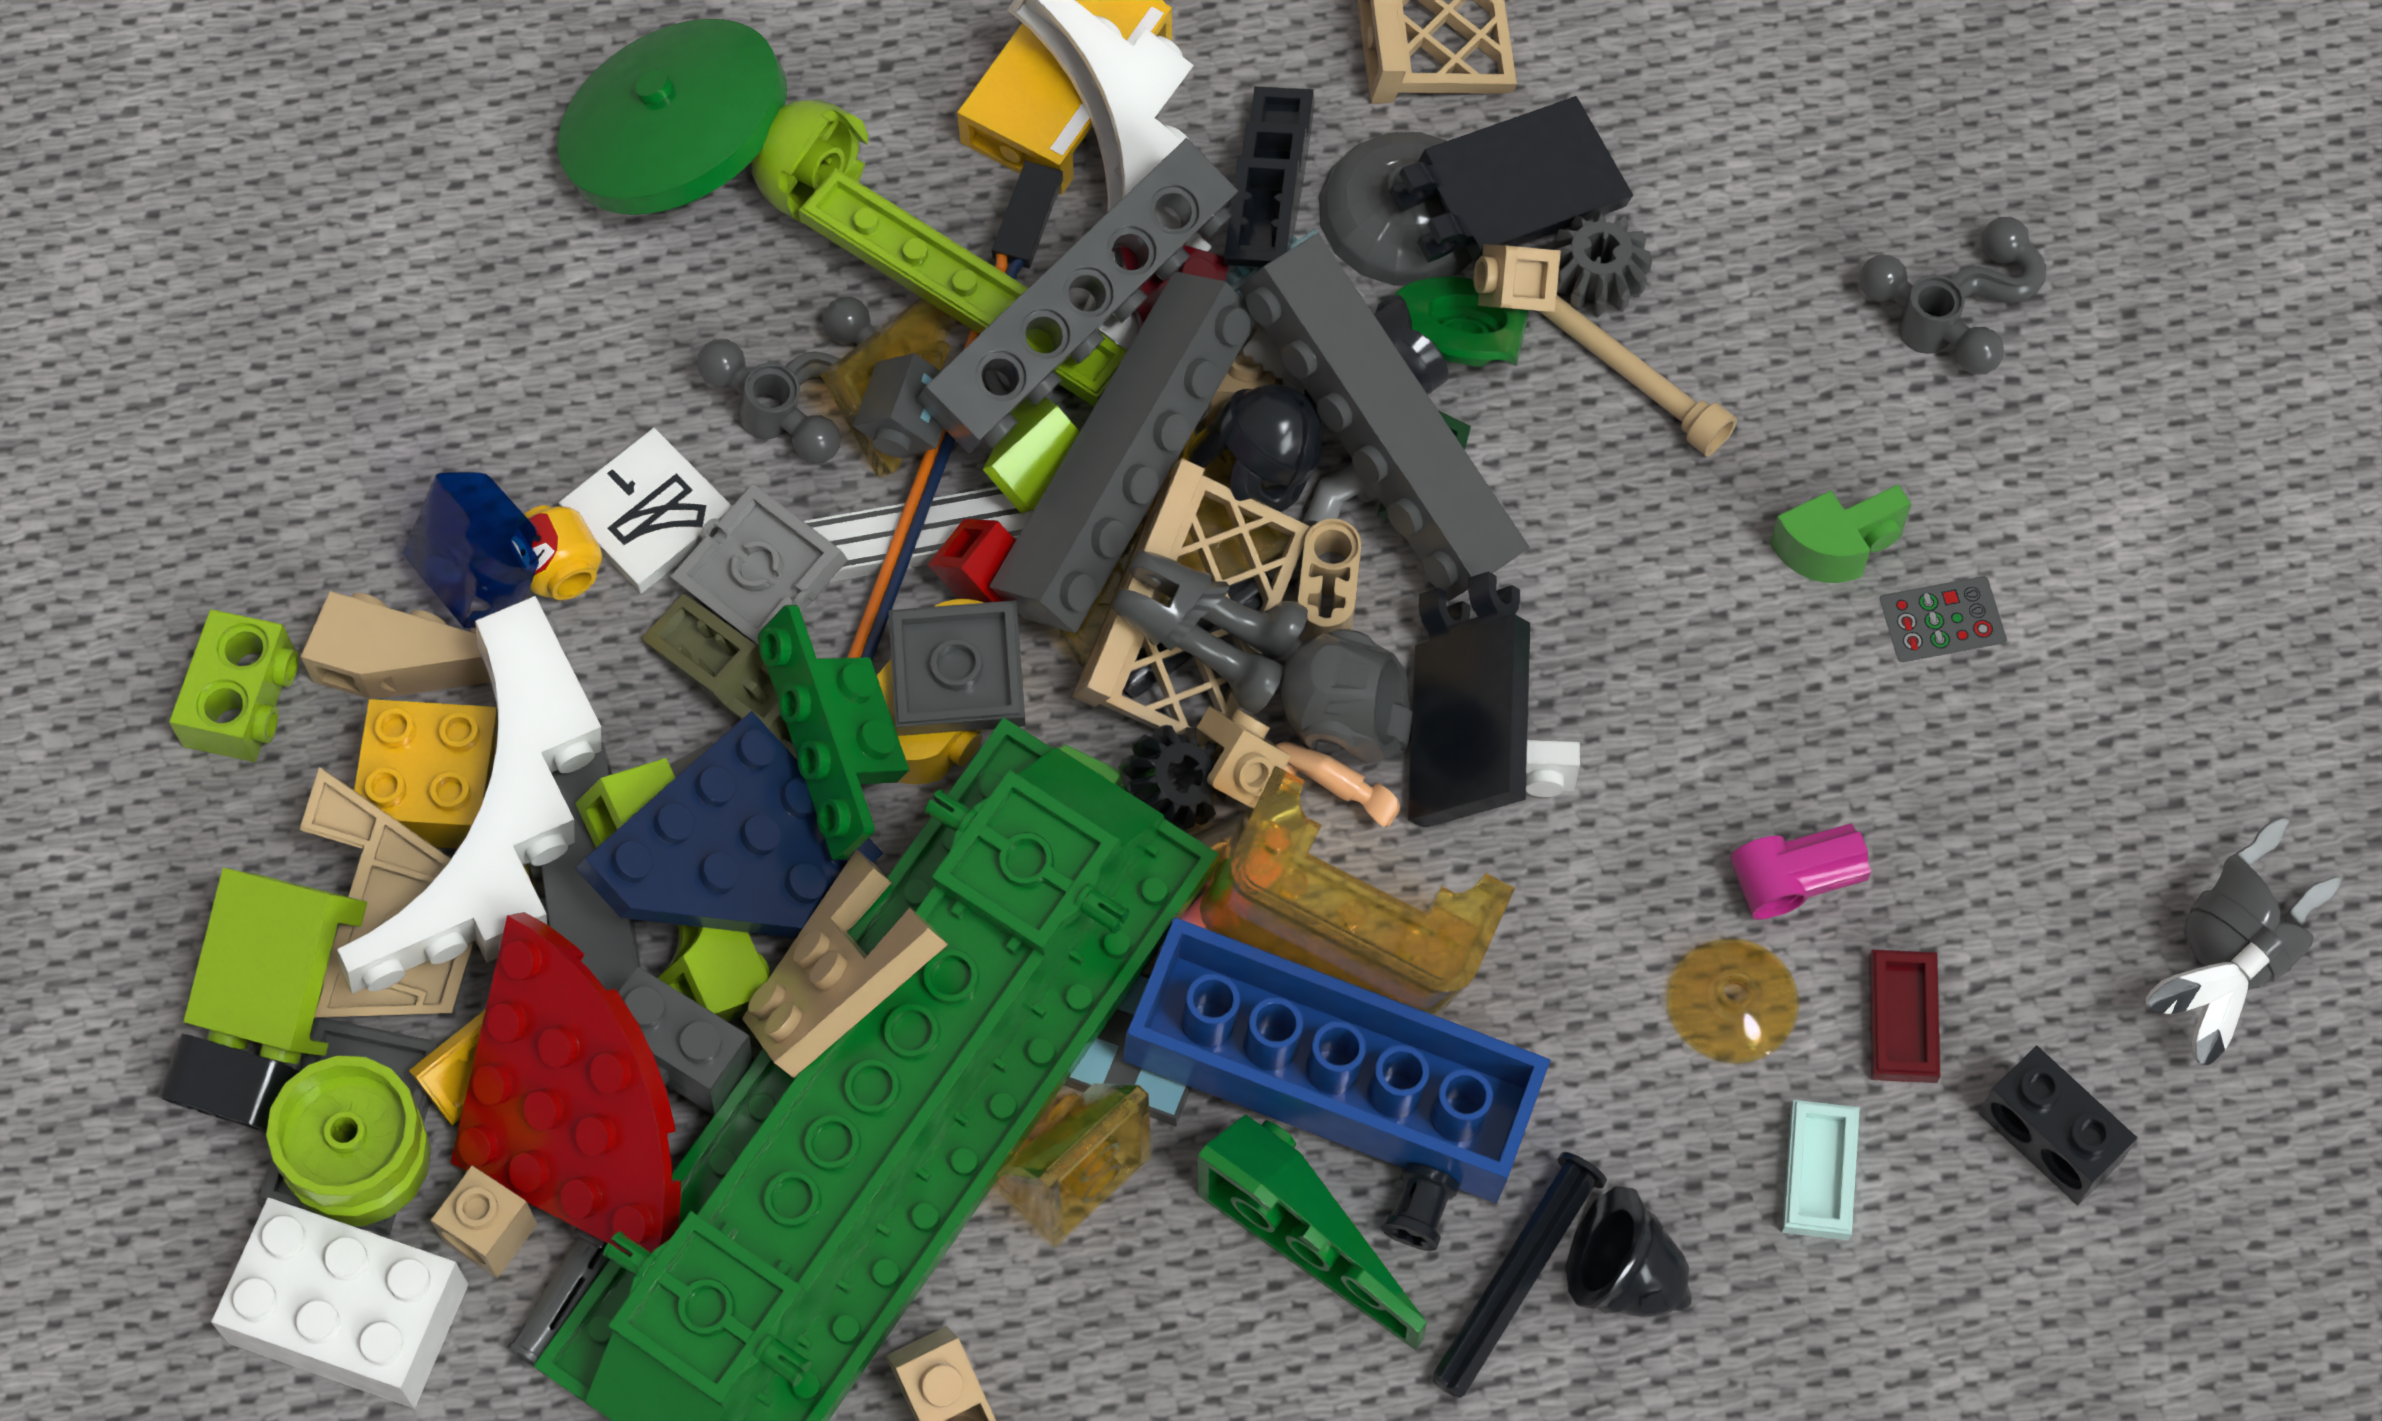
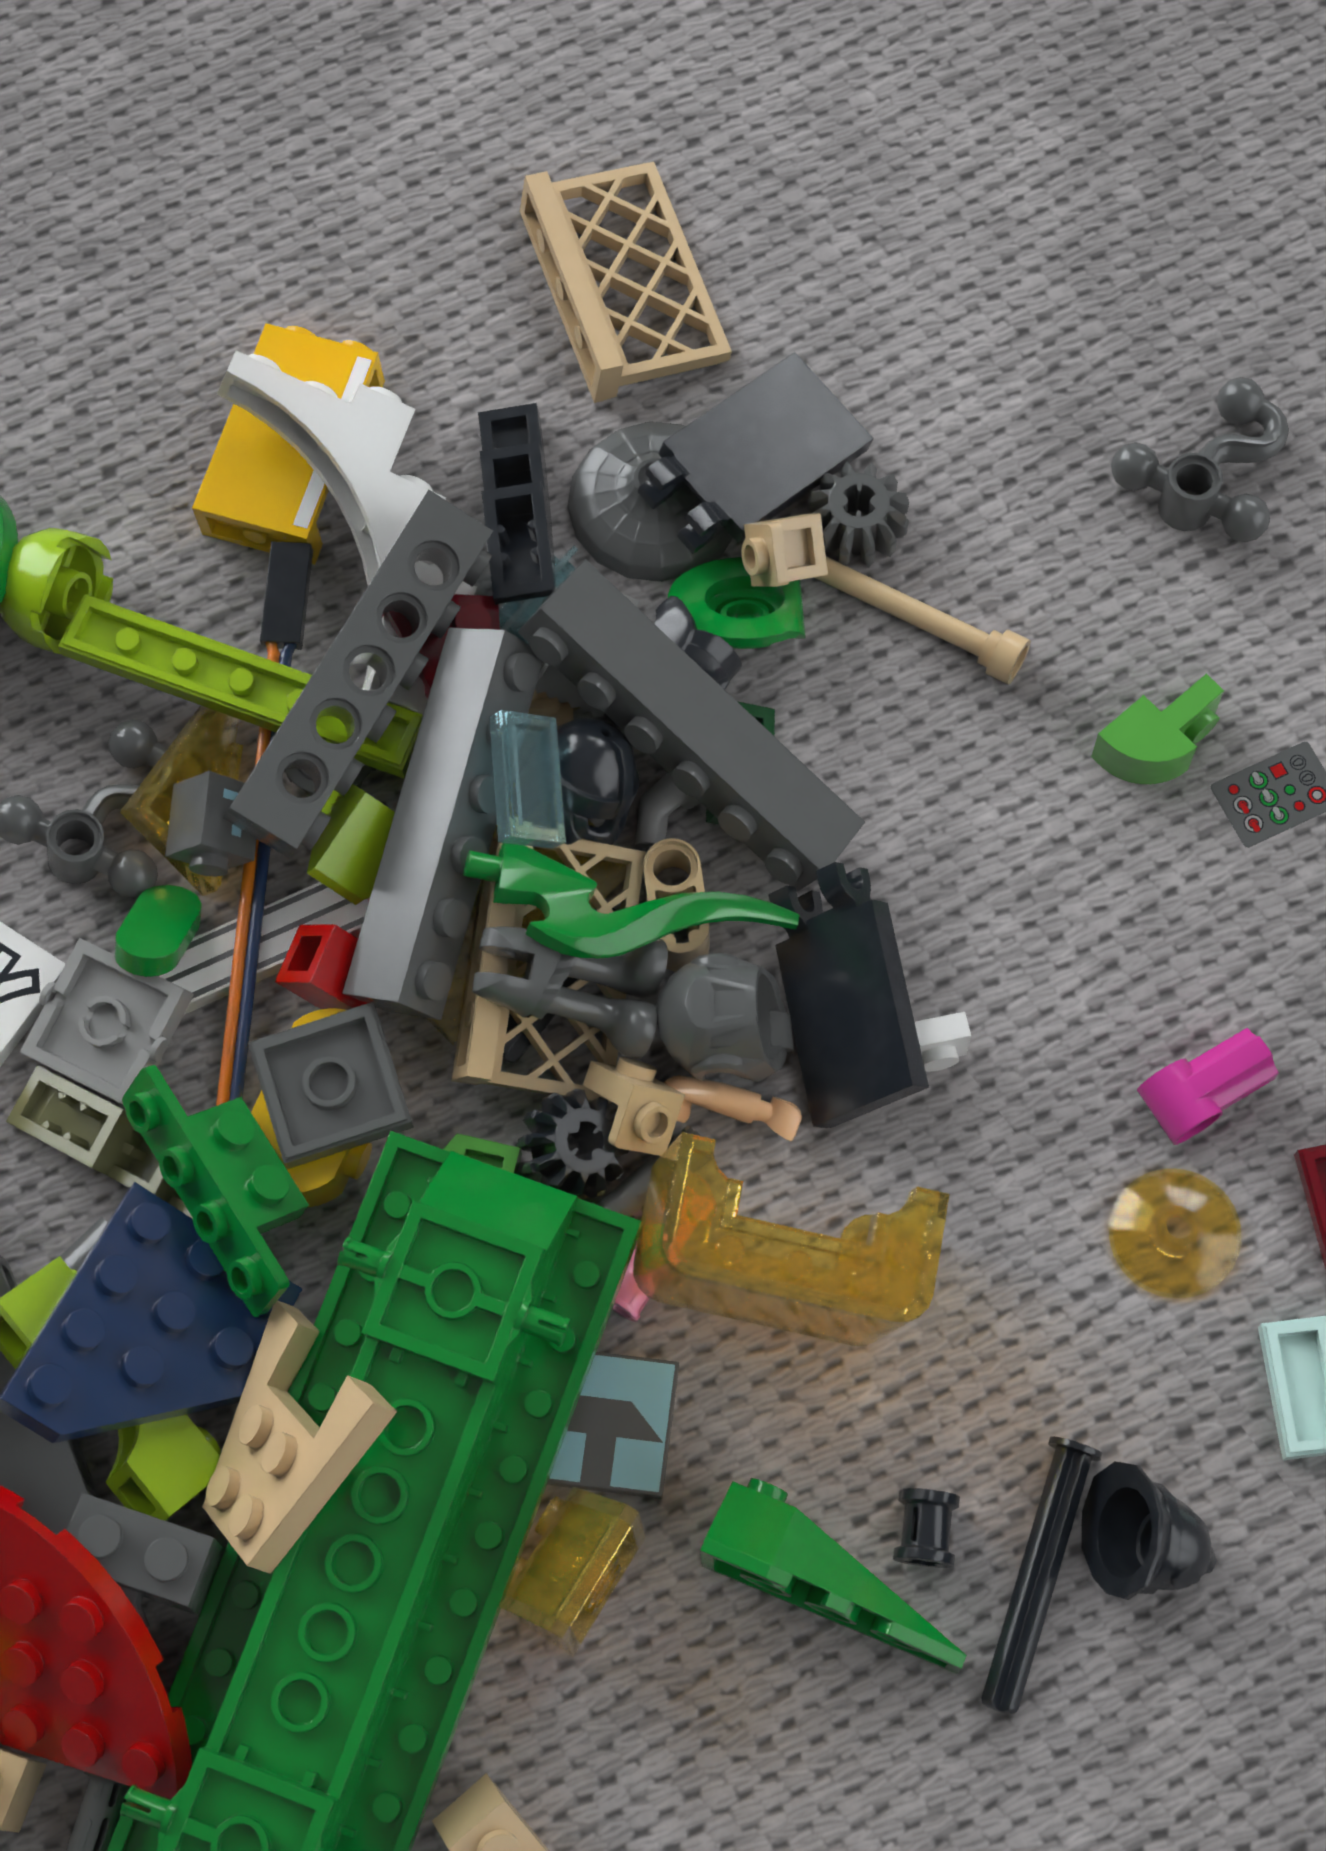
camera: 10 degrees left, 5 degrees up
(828, 494) = (157, 930): none -> green tile
(1212, 424) = (527, 779): none -> clear light blue tile
(1226, 573) = (582, 932): none -> green piece
(1334, 1059) = (809, 1401): blue brick -> none

